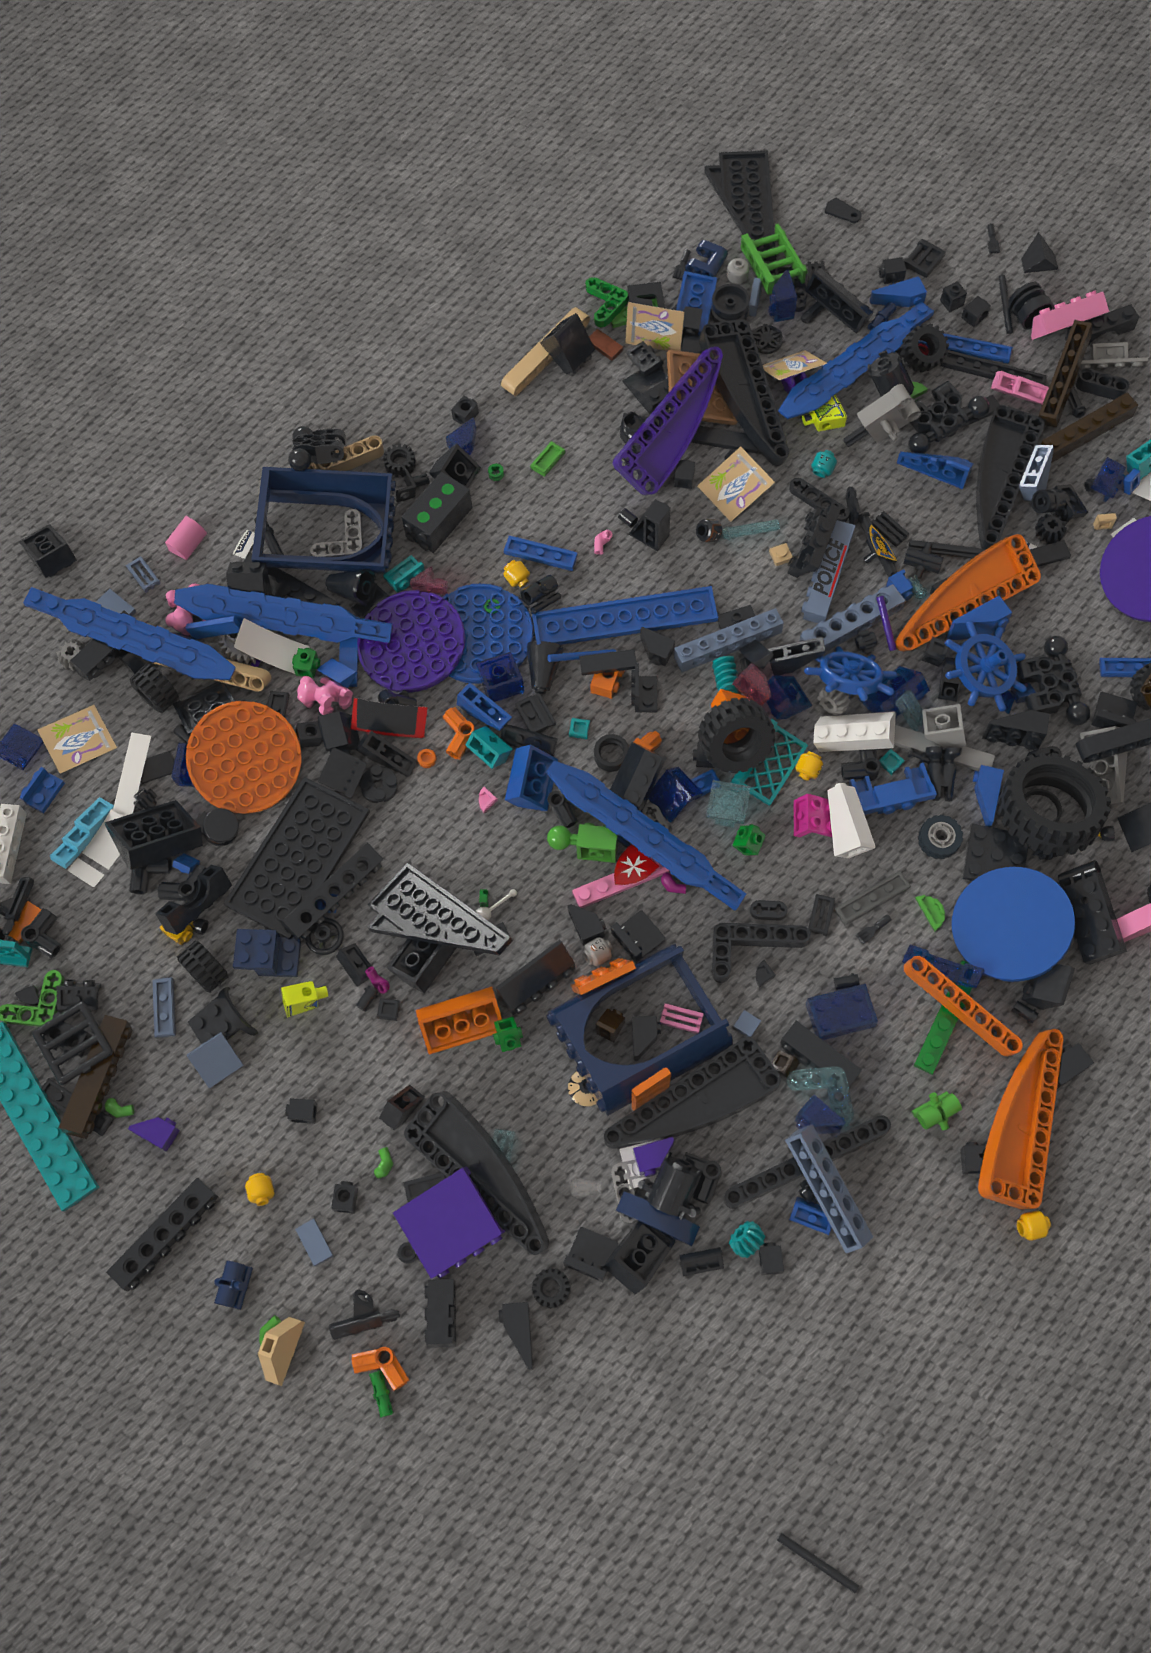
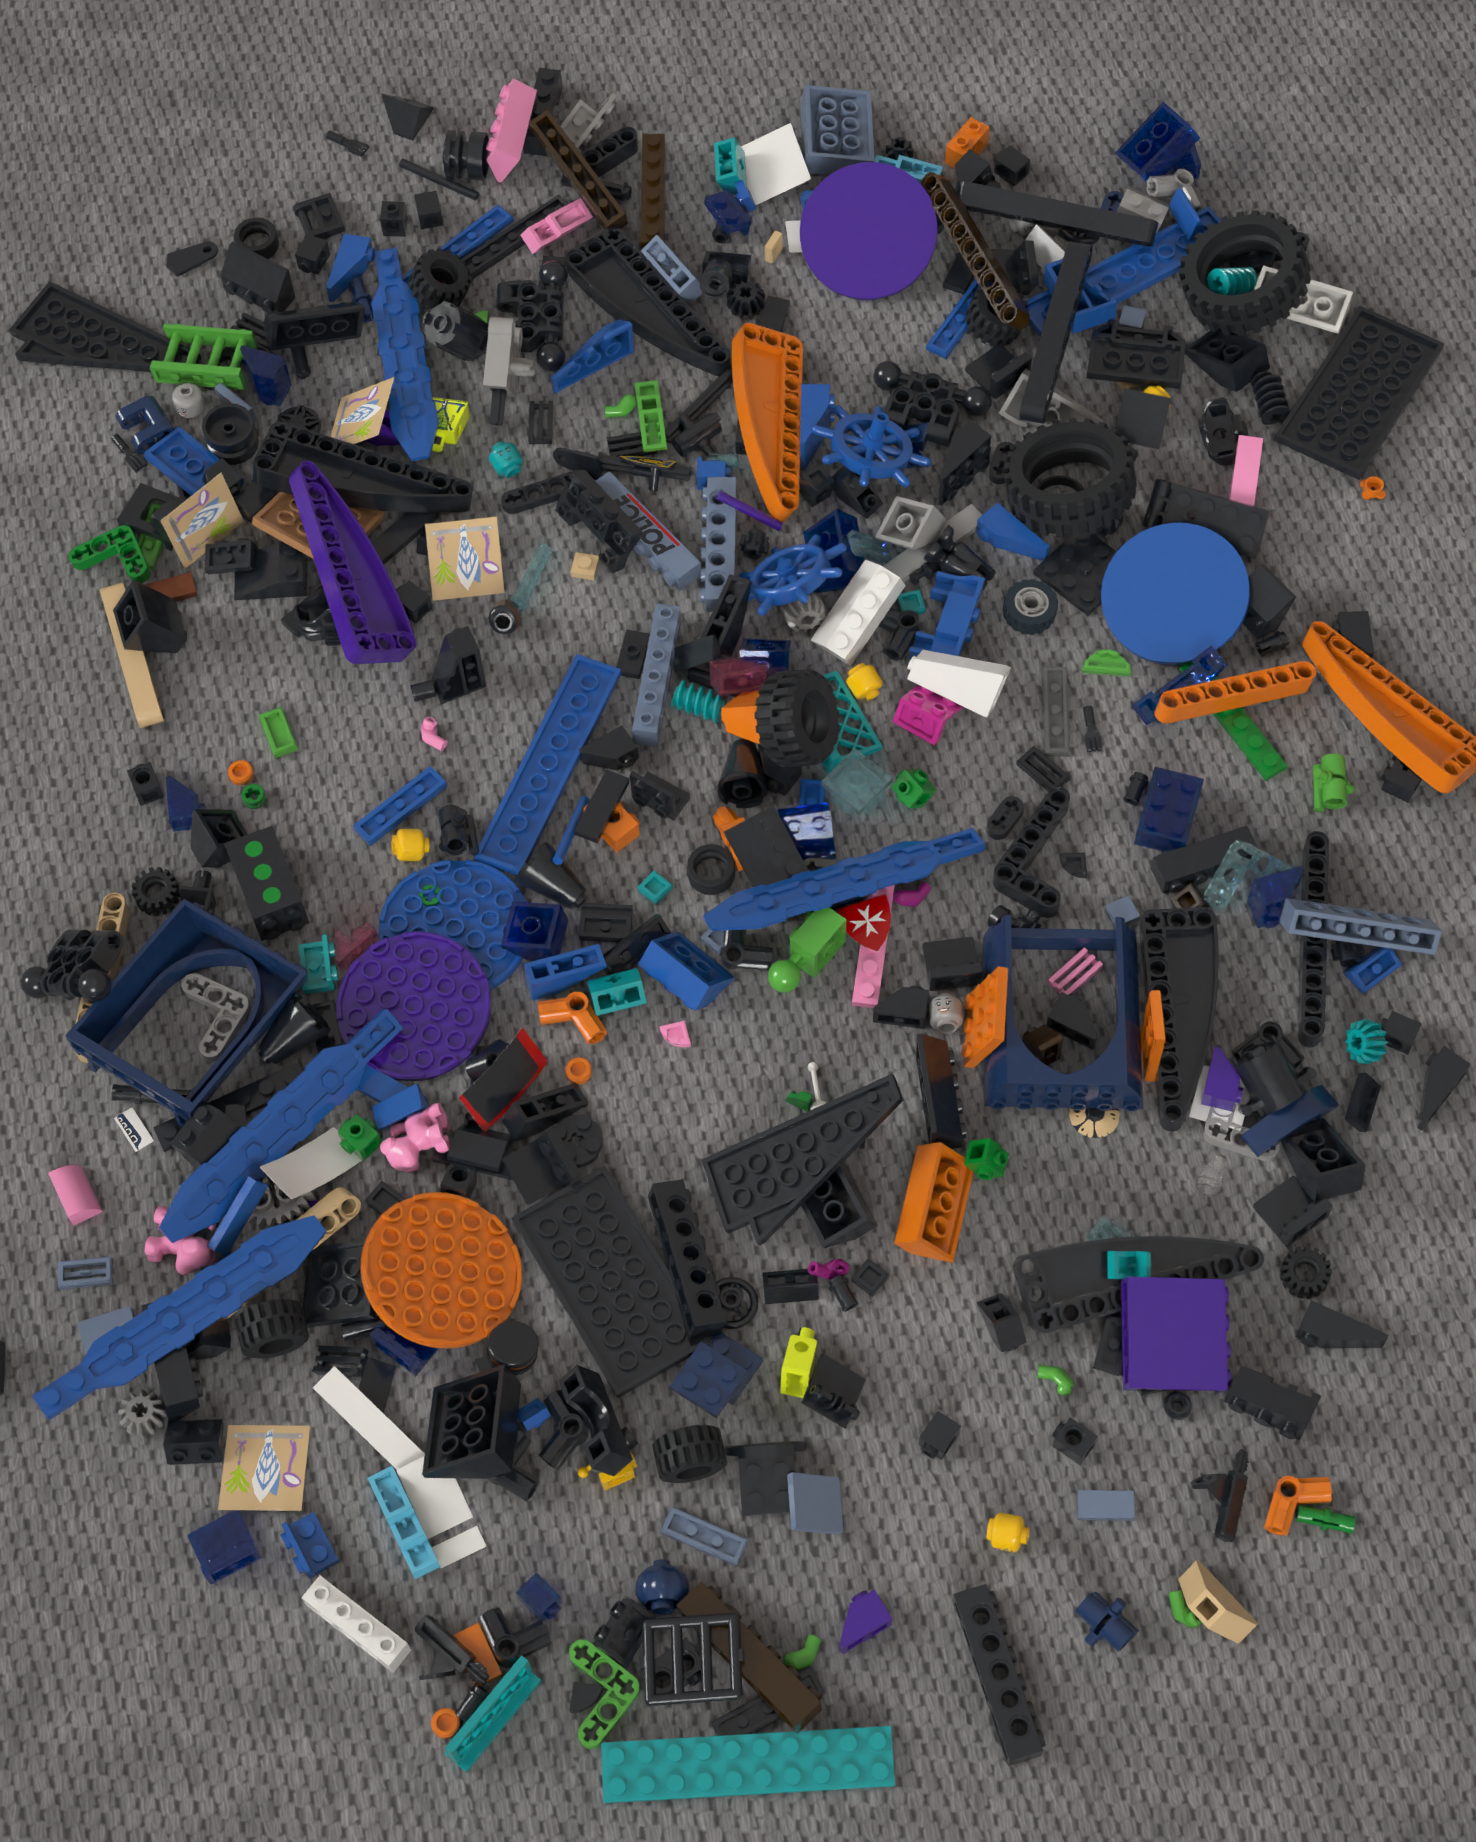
camera: 60 degrees left, 5 degrees down
(71, 691) = (193, 1441): none -> black bracket
(73, 935) = (540, 1598): none -> clear blue brick
(116, 1000) = (661, 1587): none -> dark blue plant
(145, 799) = (412, 1420): black gear -> none
(158, 730) = (324, 1351): none -> black tile
(295, 1029) = (834, 1391): none -> black hinge
(477, 1164) = (1128, 1264): none -> teal bracket
(507, 456) = (240, 772): none -> orange tile
(683, 732) = (742, 776): none -> black cone
(690, 950) = (1027, 921): none -> black arm
(754, 1307) = (1441, 1078): none -> black slope
(848, 253) = (257, 279): none -> black slope
(879, 460) = (541, 407): none -> black tile
(883, 225) = (258, 225): none -> black tyre
(913, 507) = (623, 408): none -> bright green arm
(916, 525) = (650, 416): none -> bright green slope

